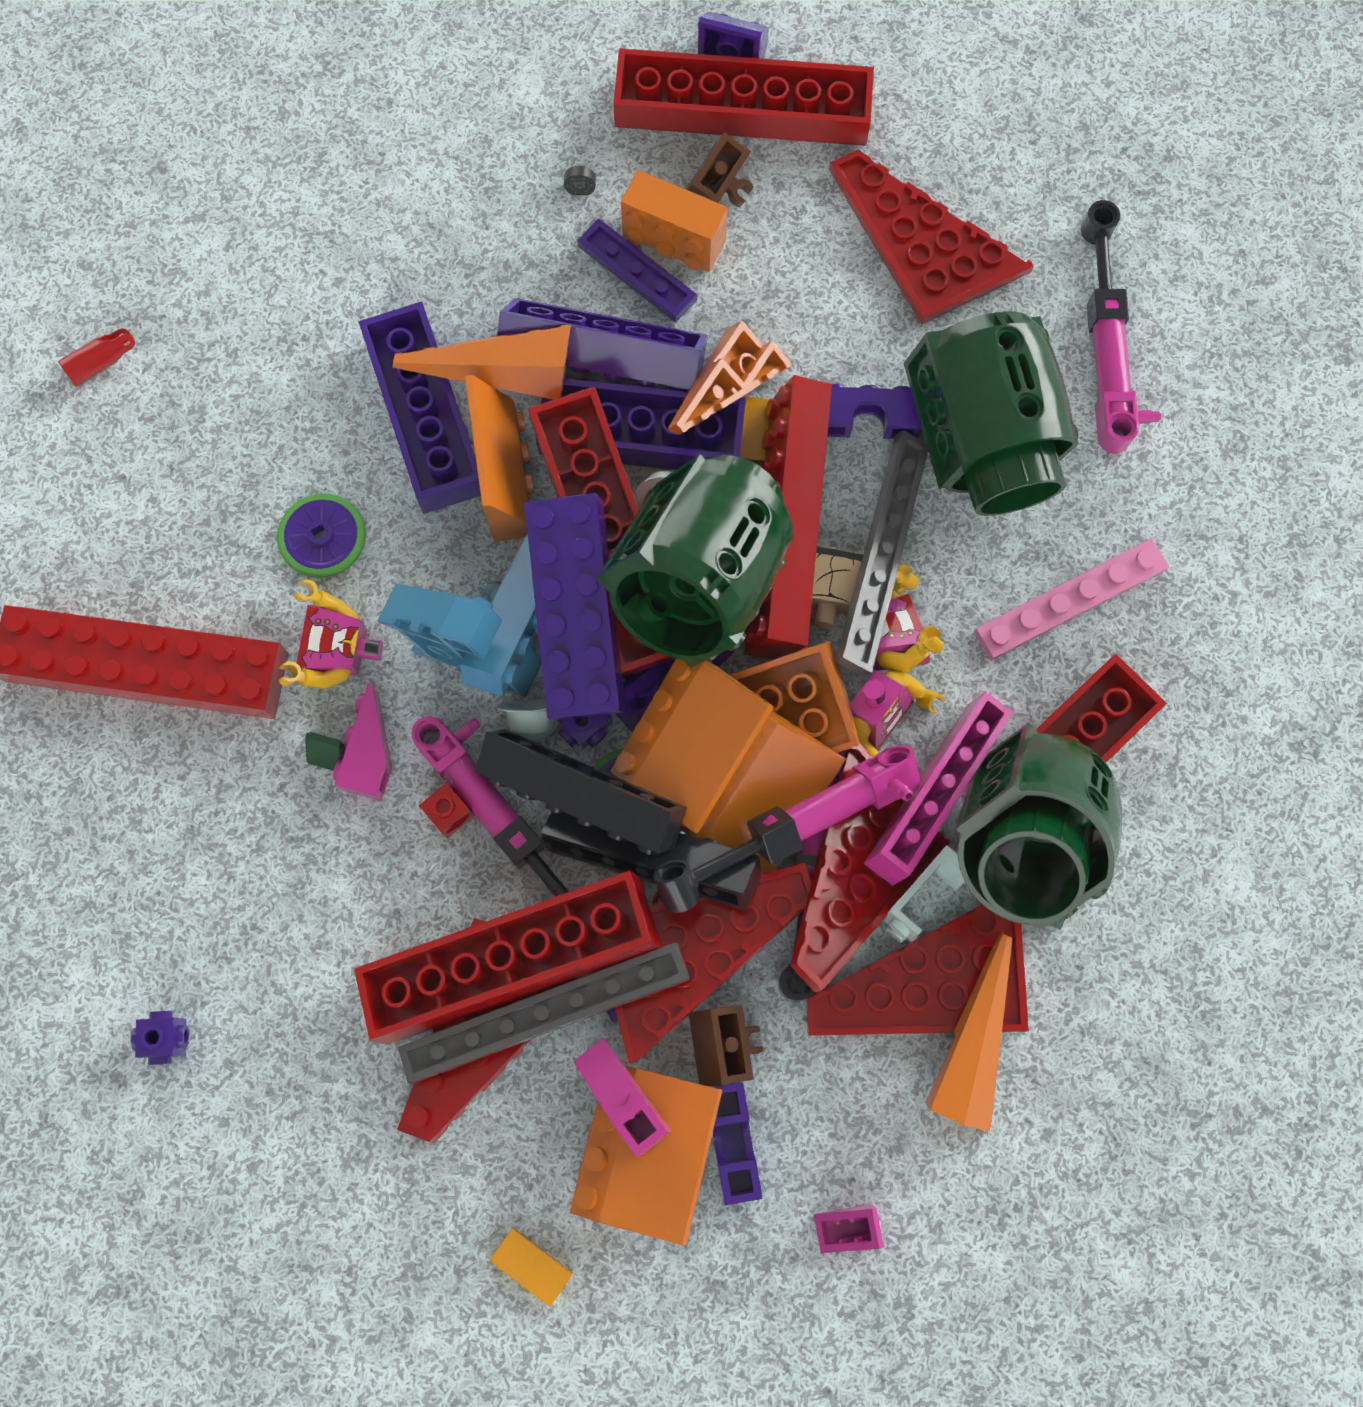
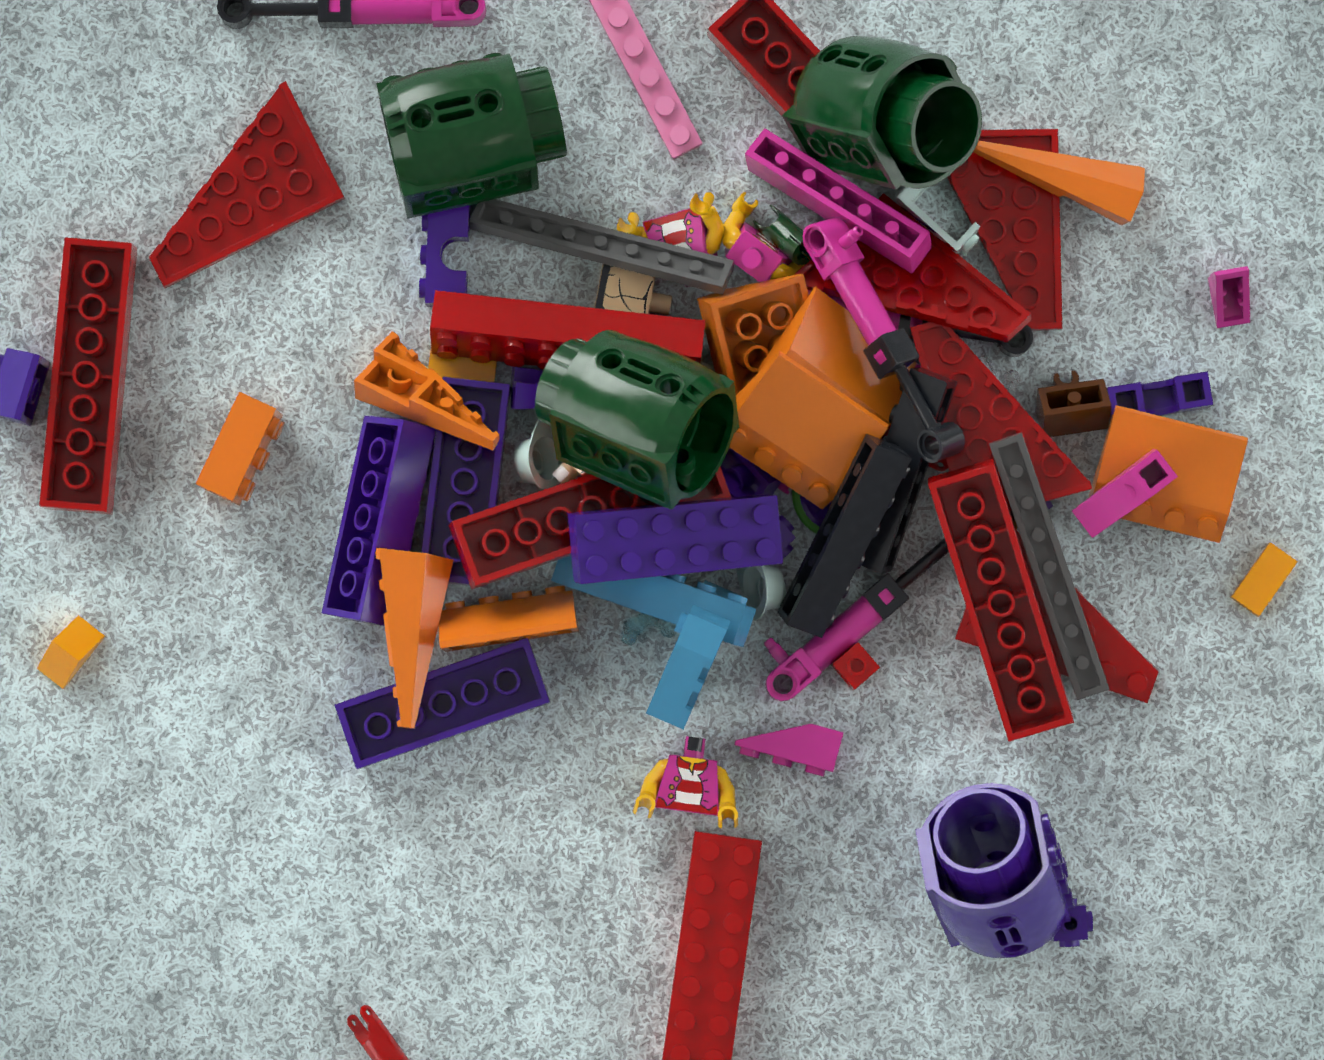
camera: 90 degrees left, 10 degrees up
(180, 981) = (1016, 899): none -> dark purple piece
(323, 750) = (796, 787): dark green slope -> none
(332, 552) = (587, 822): dark purple wheel -> none
(488, 91) = (70, 651): none -> light orange slope
(579, 180) = (181, 549): pearl dark grey tile -> none
(637, 270) = (284, 489): dark purple plate -> none
(719, 171) = (181, 404): reddish brown brick -> none
(899, 733) = (785, 237): none -> dark green piece

